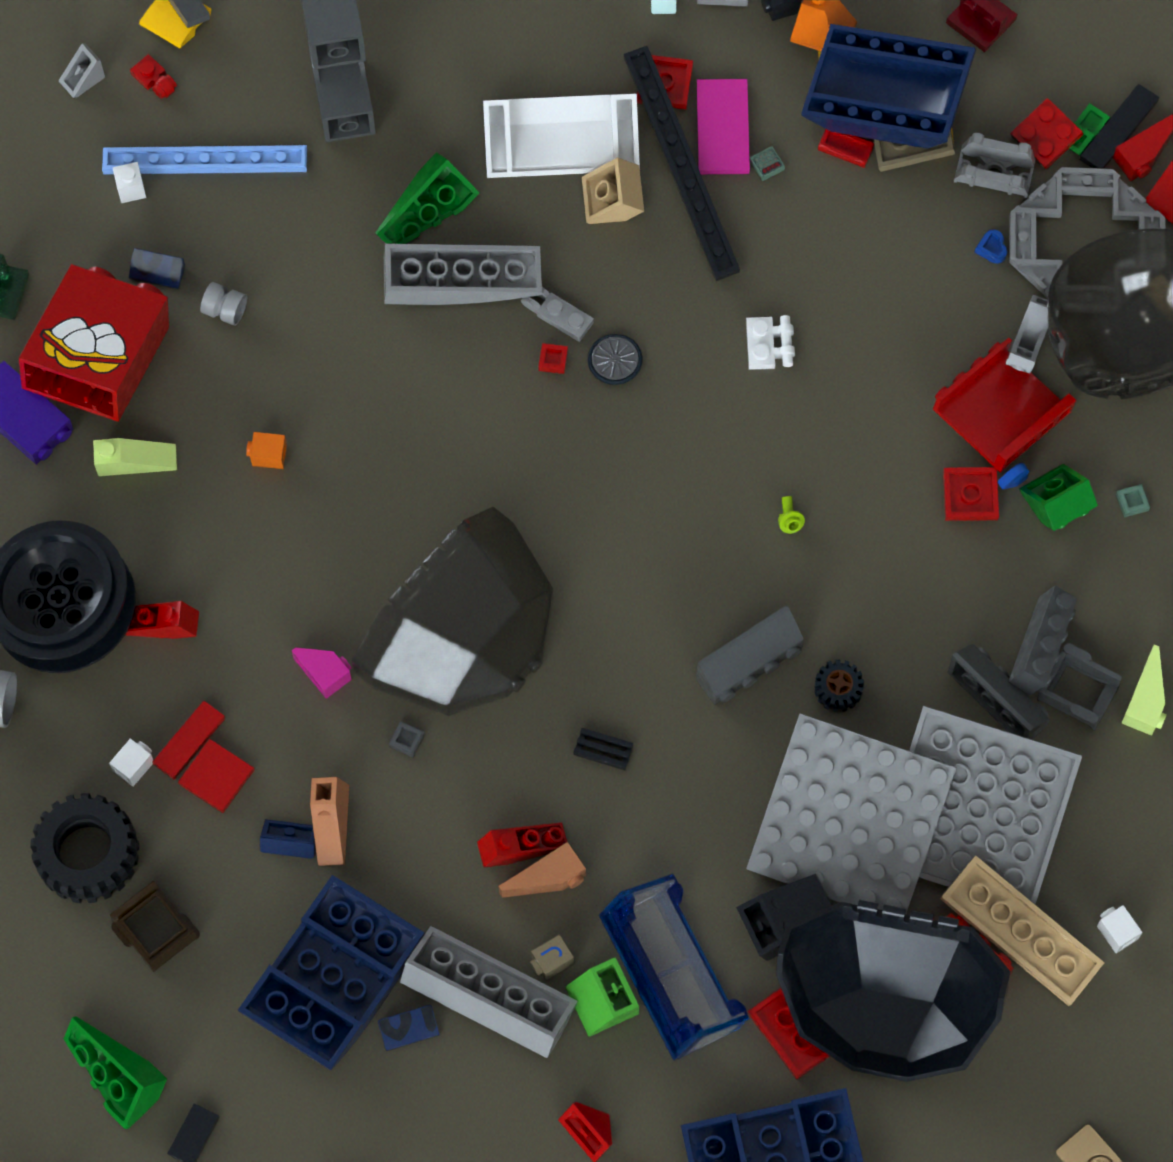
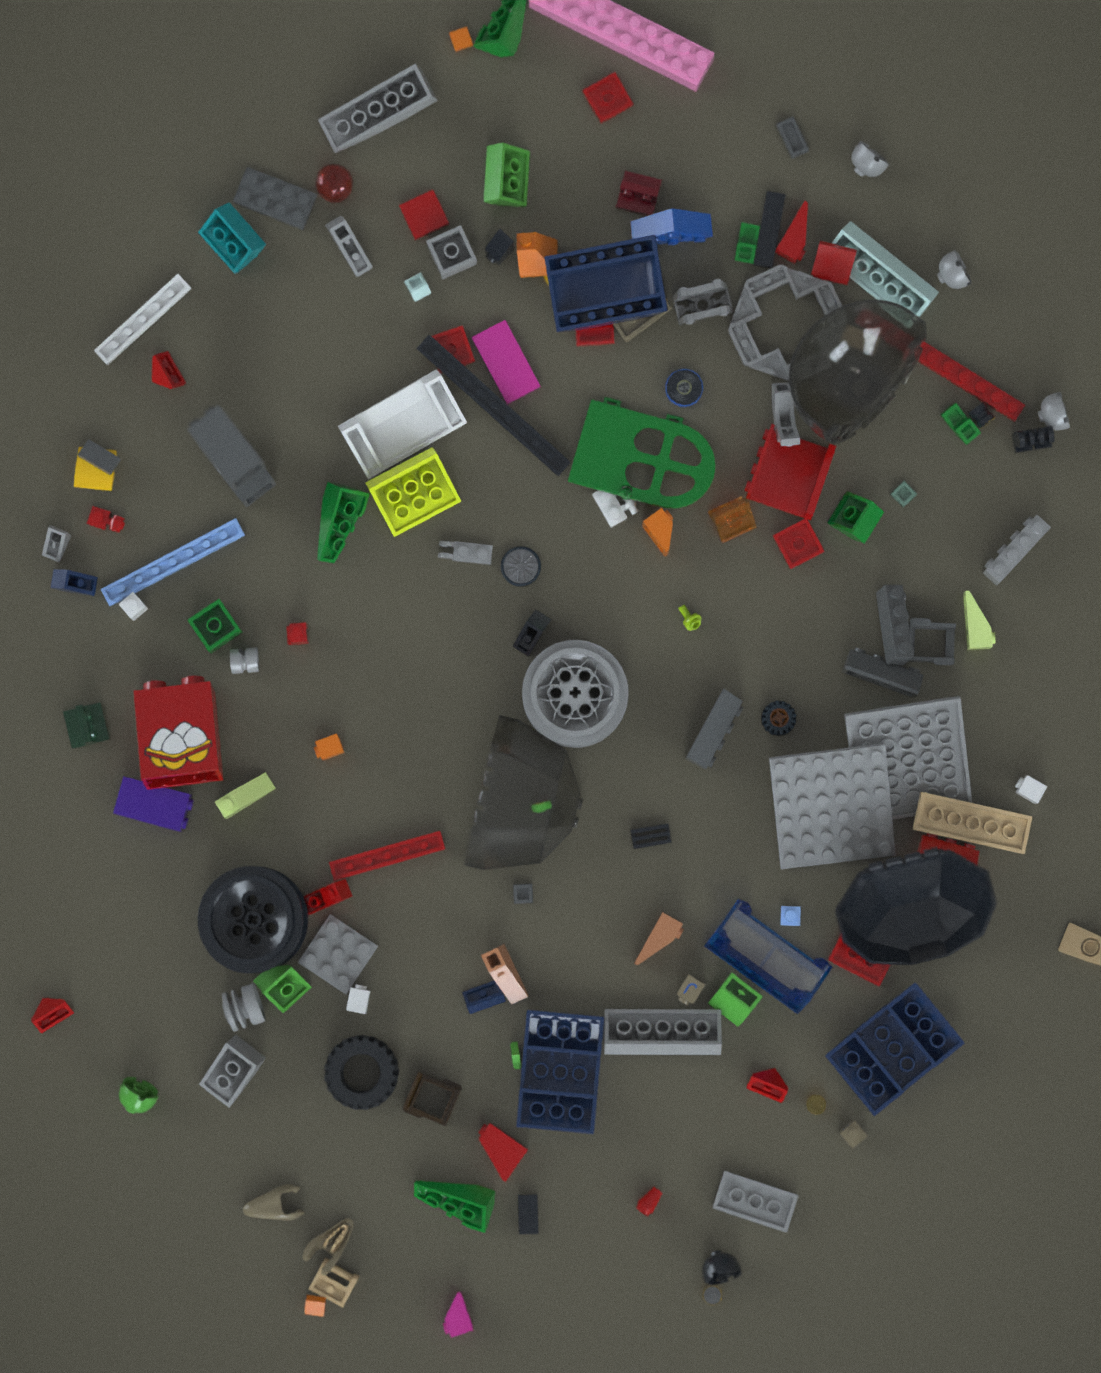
camera: 25 degrees left, 15 degrees up
(49, 698) = (282, 986): none -> bright green slope
(77, 124) = (74, 582): none -> dark blue slope
(139, 696) = (338, 954): none -> light grey plate
(156, 268) = (185, 657): slope -> none
(188, 740) = (385, 966): red tile -> none
(204, 1035) = (501, 1149): none -> red slope
(211, 247) = (215, 626): none -> green brick
(216, 776) = (415, 980): red tile -> none
(266, 610) = (387, 855): none -> red plate
(288, 927) = (515, 1055): none -> bright green tile
(302, 303) = (297, 633): none -> red window
(323, 669) = (446, 876): dark pink slope -> none
(408, 1027) = (624, 1079): slope -> none
(460, 273) = (390, 559): light grey slope -> none
(483, 621) = (541, 806): none -> bright green tile
(520, 843) = (633, 925): red slope -> none
(533, 212) = (413, 491): none -> neon yellow slope
(553, 358) = (480, 587): red plate -> none
(576, 567) = (575, 728): none -> light grey wheel
(586, 438) = (531, 632): none -> black slope
(613, 192) = (459, 449): tan slope -> none
(728, 933) = (790, 916): none -> light blue plate
(767, 163) = (549, 374): sand green tile -> none
(773, 911) = (823, 889): black slope -> none
(796, 272) = (609, 447): none -> green door
(807, 390) = (659, 529): none -> orange slope
(904, 425) = (732, 519): none -> clear orange bracket
(922, 253) = (684, 387): none -> black tile
(992, 247) = (727, 360): blue tile -> none
(1008, 67) = (674, 226): none -> blue brick
(1014, 476) = (820, 519): blue tile -> none
(1047, 132) = (724, 259): red plate -> none

